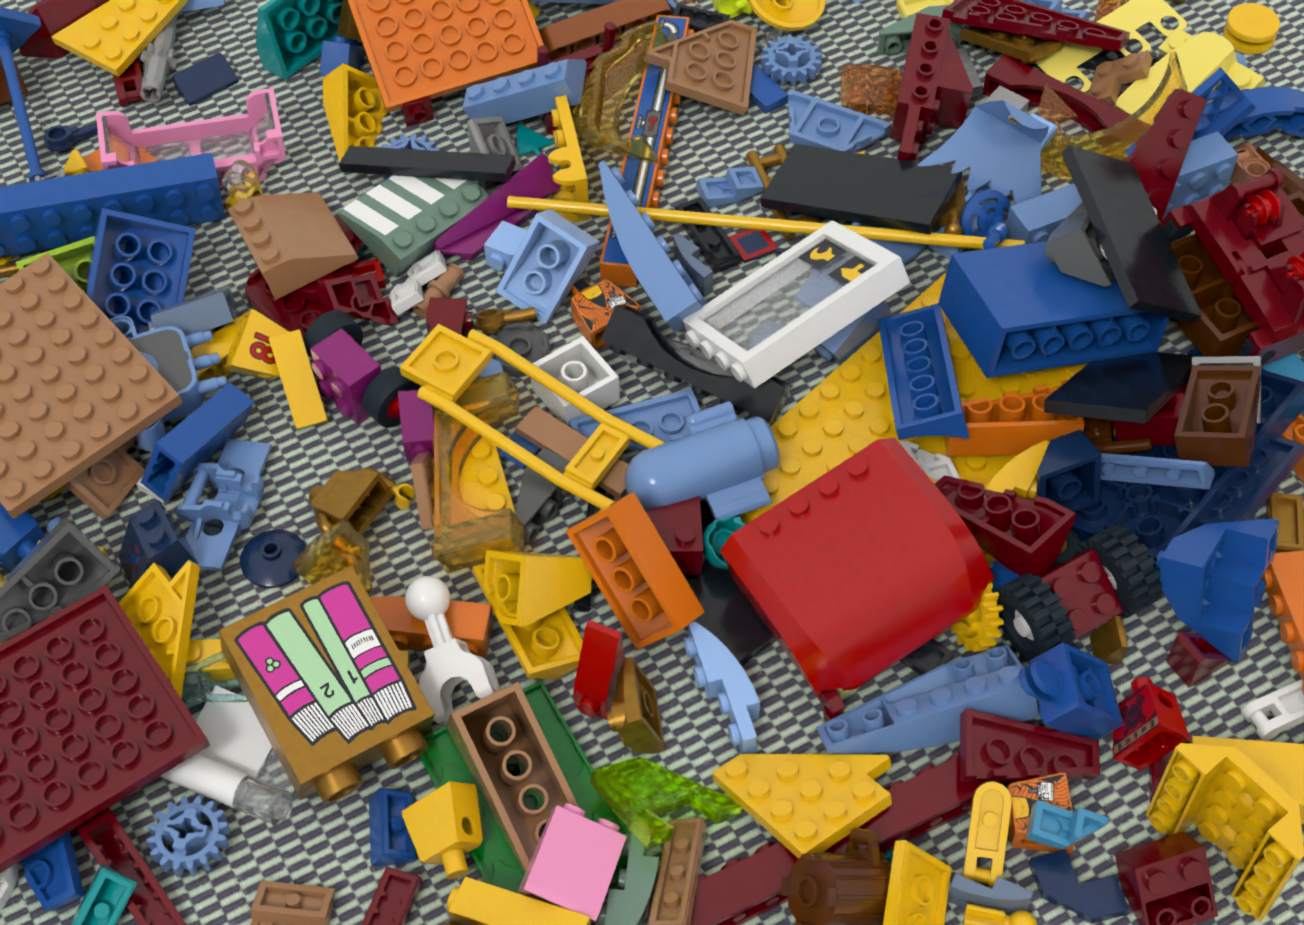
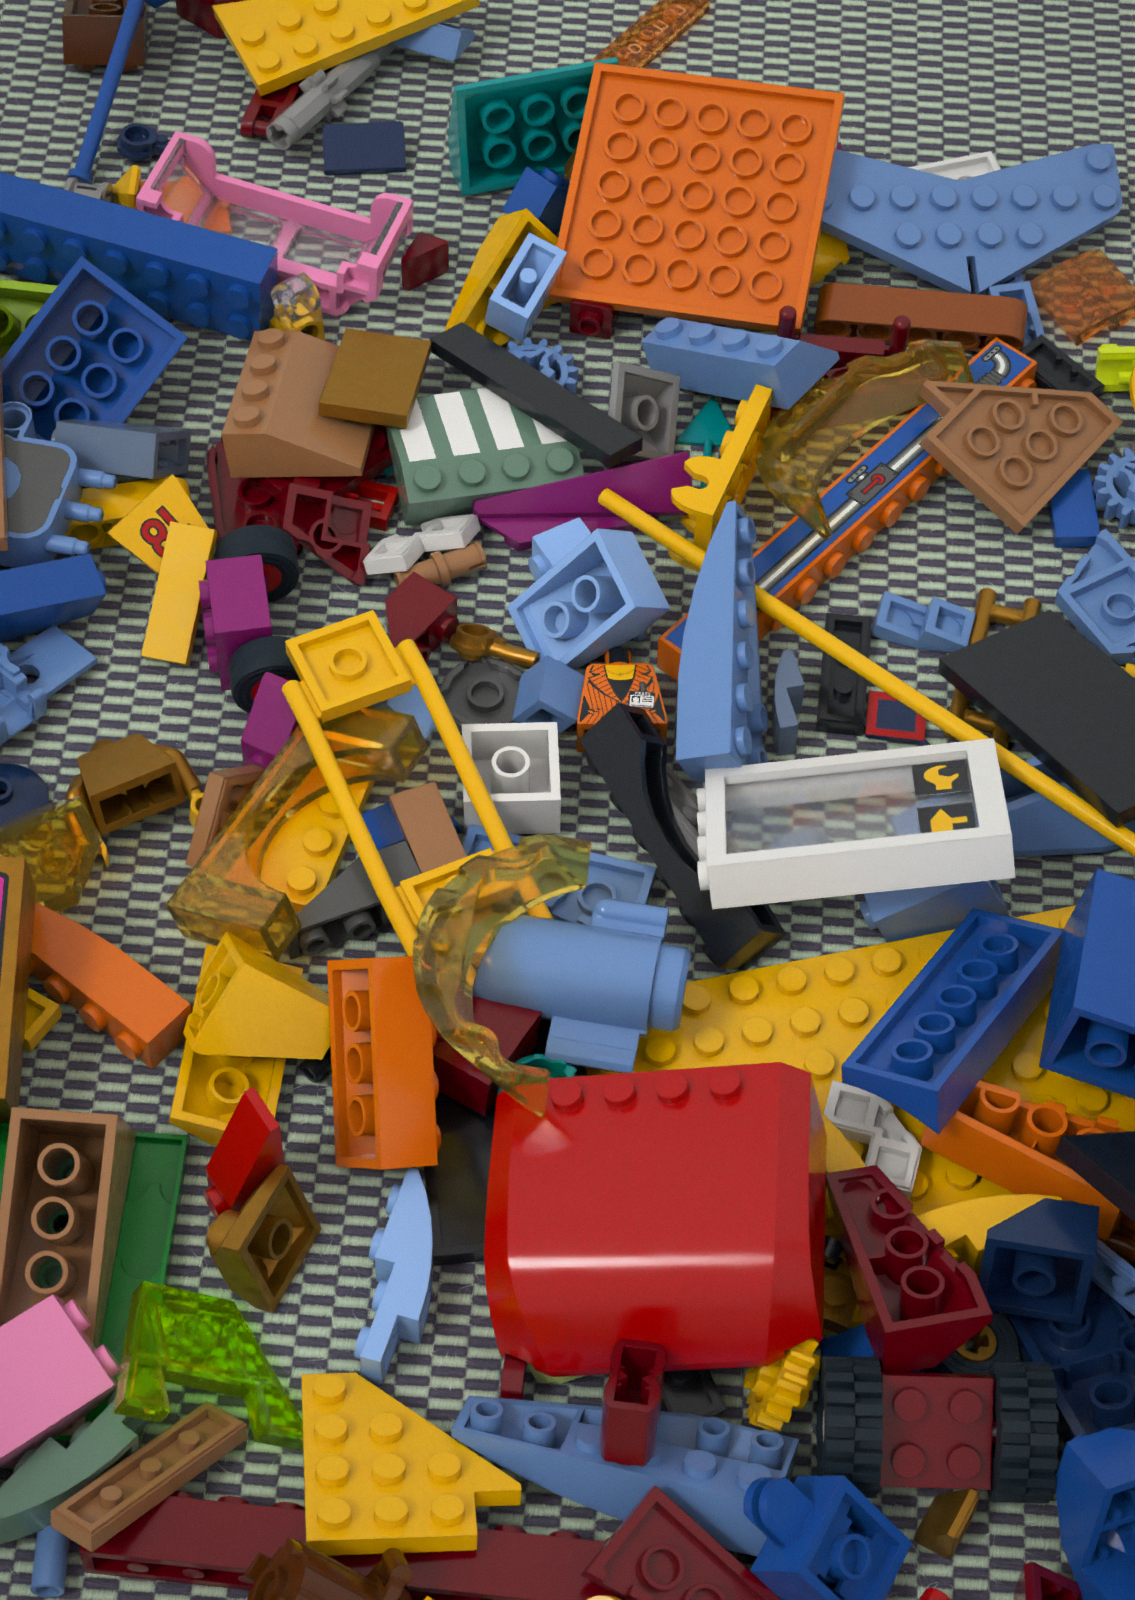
camera: 30 degrees right, 0 degrees up
(294, 124) = (424, 260): none -> dark red slope
(325, 199) = (375, 378): none -> pearl gold tile
(374, 108) = (524, 287): none -> light blue slope
(450, 657) = (89, 1045): white piece -> none
(559, 326) = (549, 694): none -> medium blue brick
(632, 458) = (461, 927): none -> clear yellow windscreen
(922, 671) = (632, 1402): none -> dark red brick

